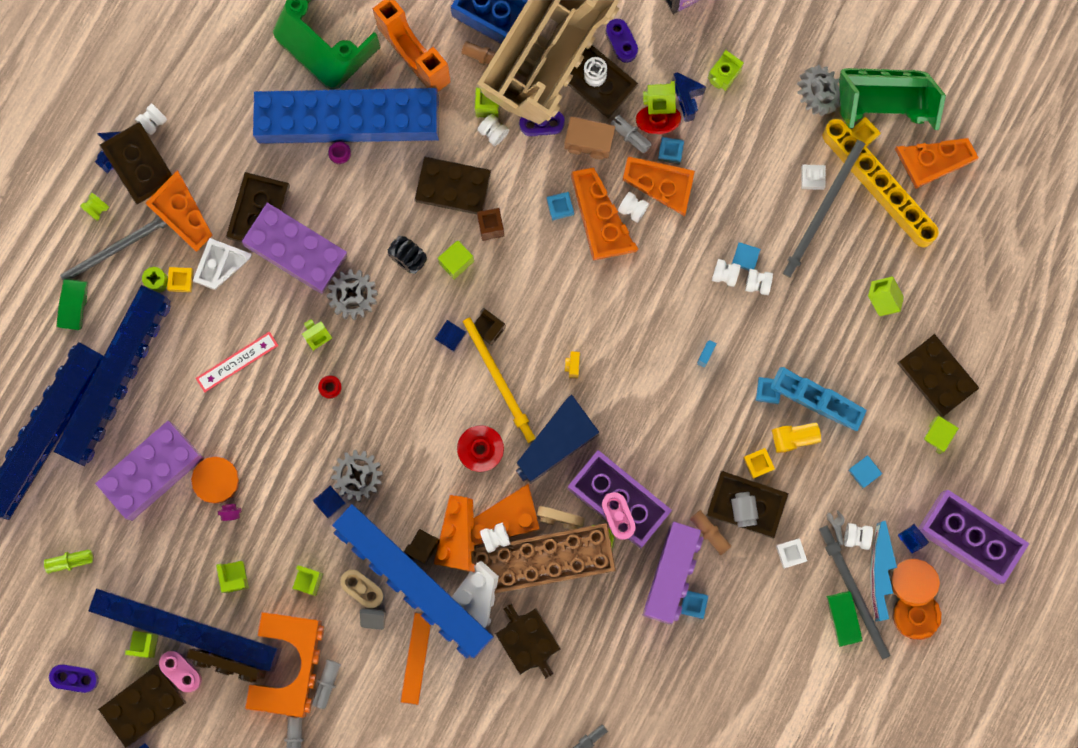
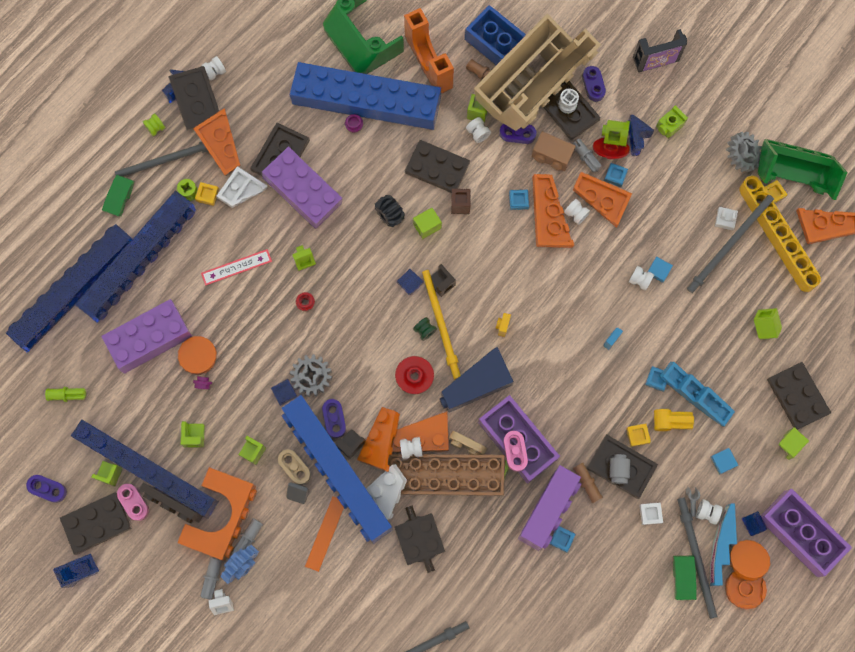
camera: 10 degrees right, 5 degrees down
(324, 717) = (239, 564): none -> medium blue gear
(346, 301) = (344, 226): light grey gear -> none
(396, 521) = (334, 419): none -> dark purple plate
(480, 390) = (424, 328): none -> dark green wheel
(753, 282) = (662, 288): white wheel -> none

